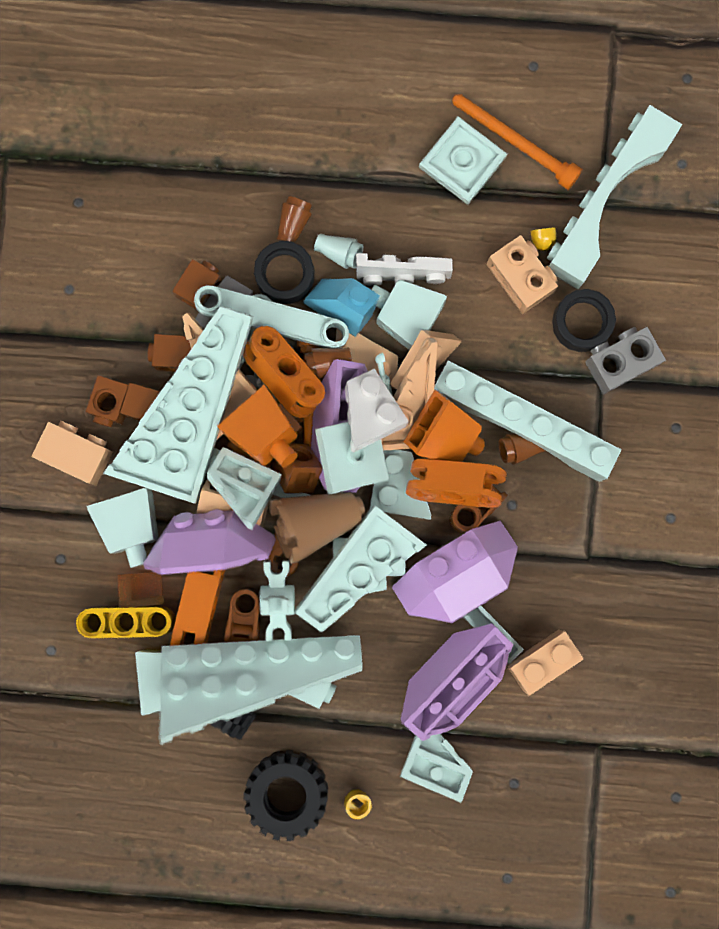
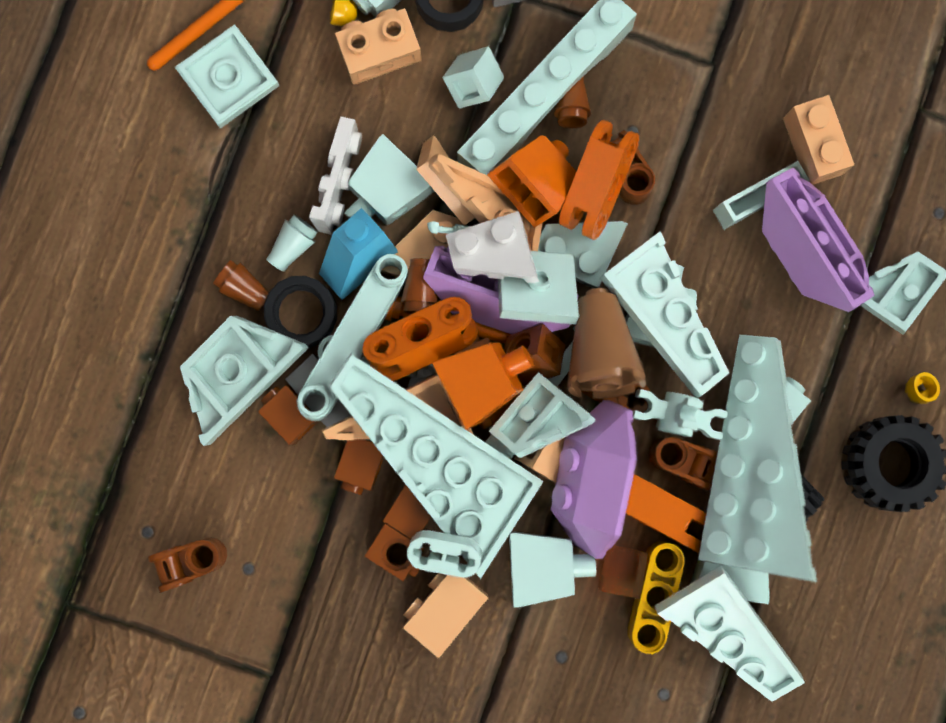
camera: 80 degrees left, 0 degrees up
(58, 236) = (182, 563): none -> dark orange piece
(114, 437) = (445, 553): none -> light aqua beam
(116, 683) = (728, 626): none -> light aqua wing
(222, 233) = (234, 371): none -> light aqua wing
(459, 575) = (701, 207): lavender wedge -> none
(518, 359) = (473, 77): none -> light aqua panel

